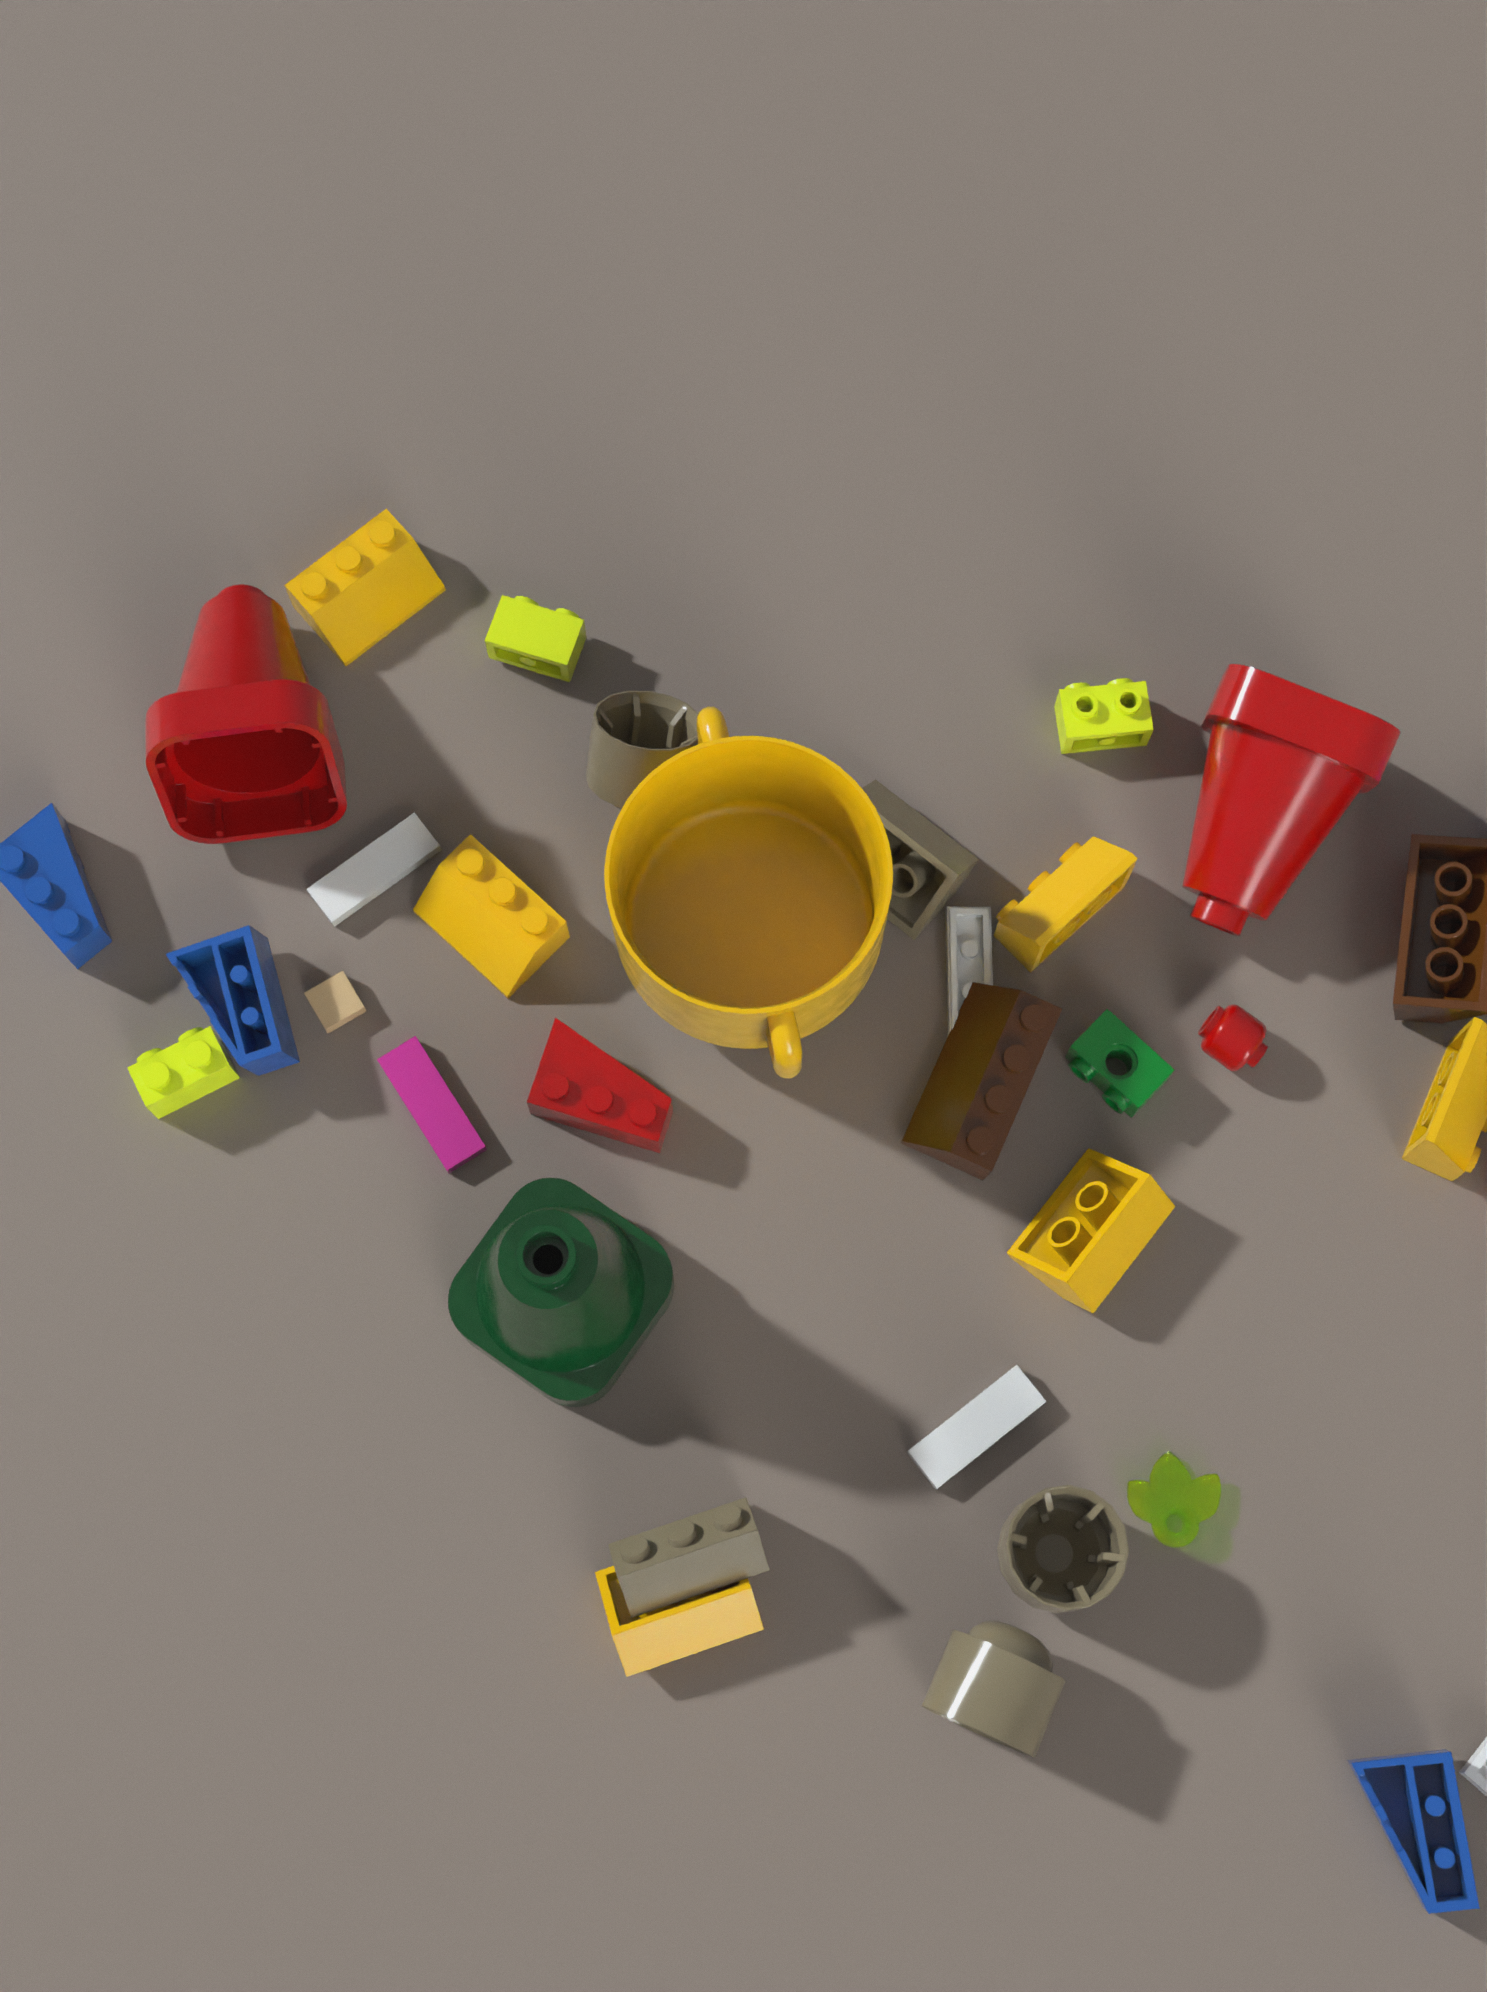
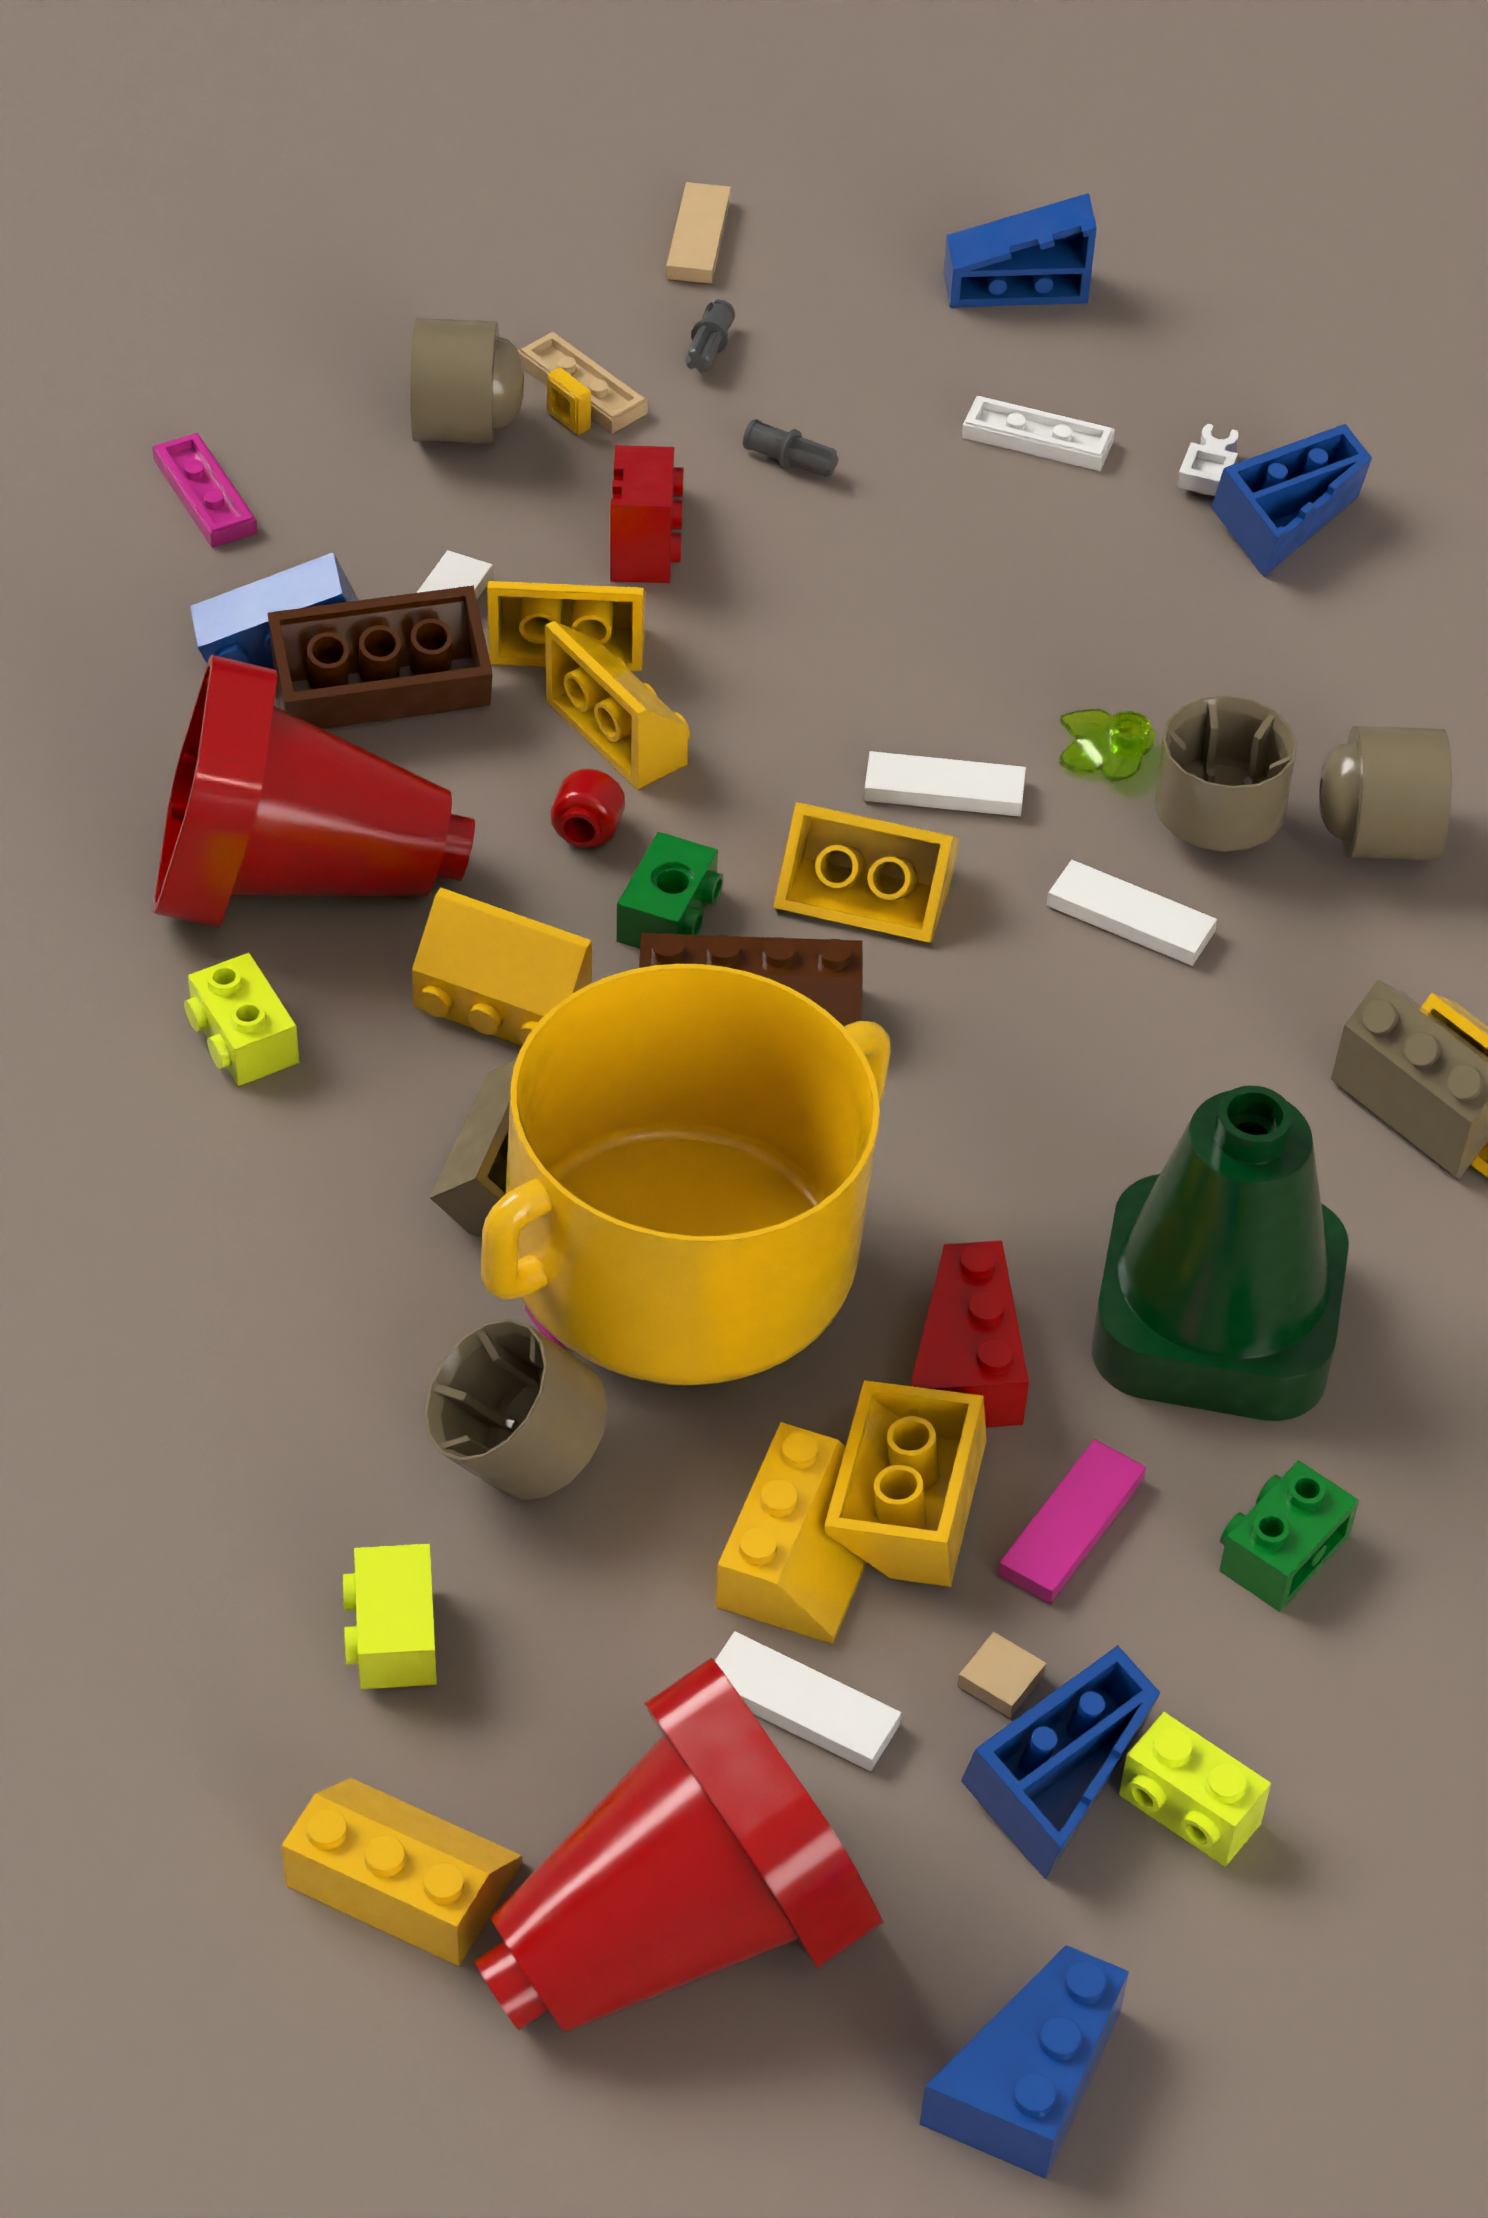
camera: 115 degrees left, 25 degrees down
(346, 1237) = (1287, 1534): none -> green brick
(492, 993) = (908, 1480): none -> yellow slope
(1175, 1343) = (944, 783): none -> white tile
(1343, 1101) = (612, 707): none -> yellow slope

